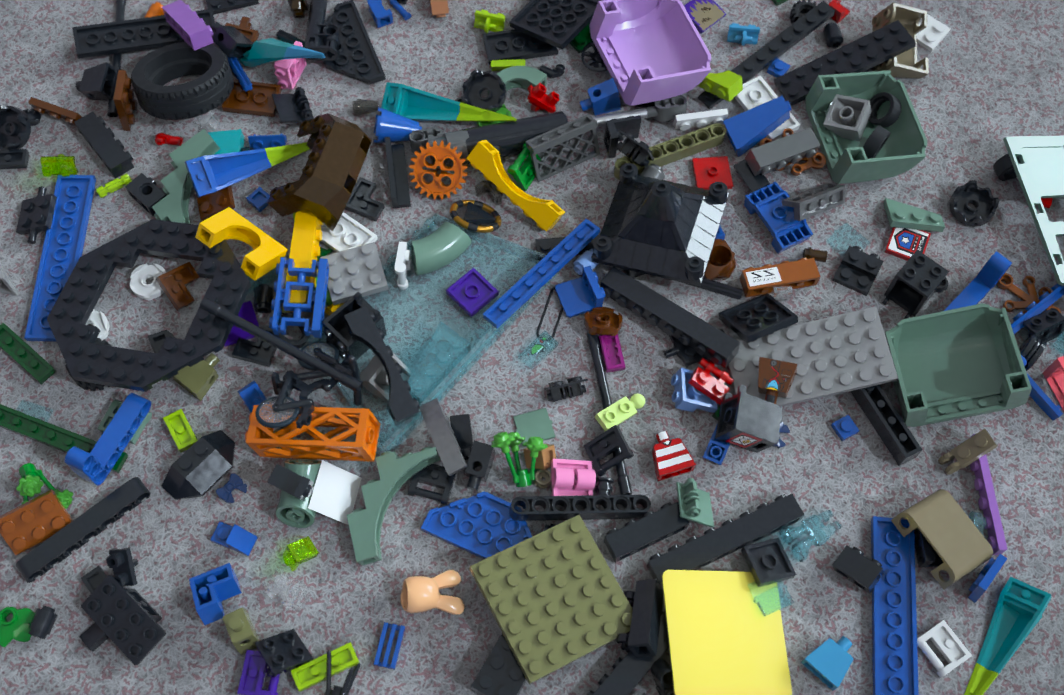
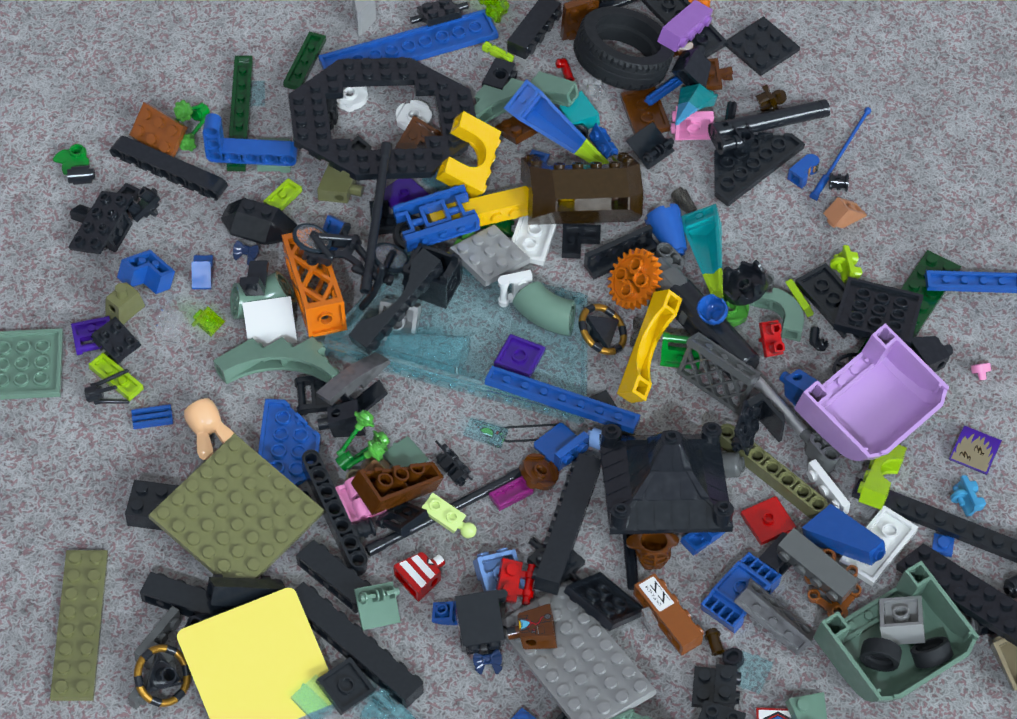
camera: 70 degrees right, 10 degrees down
(513, 119) = (712, 309): none -> blue hair
(581, 444) = (390, 487): none -> reddish brown wedge
(834, 247) = (733, 657): none -> black tile

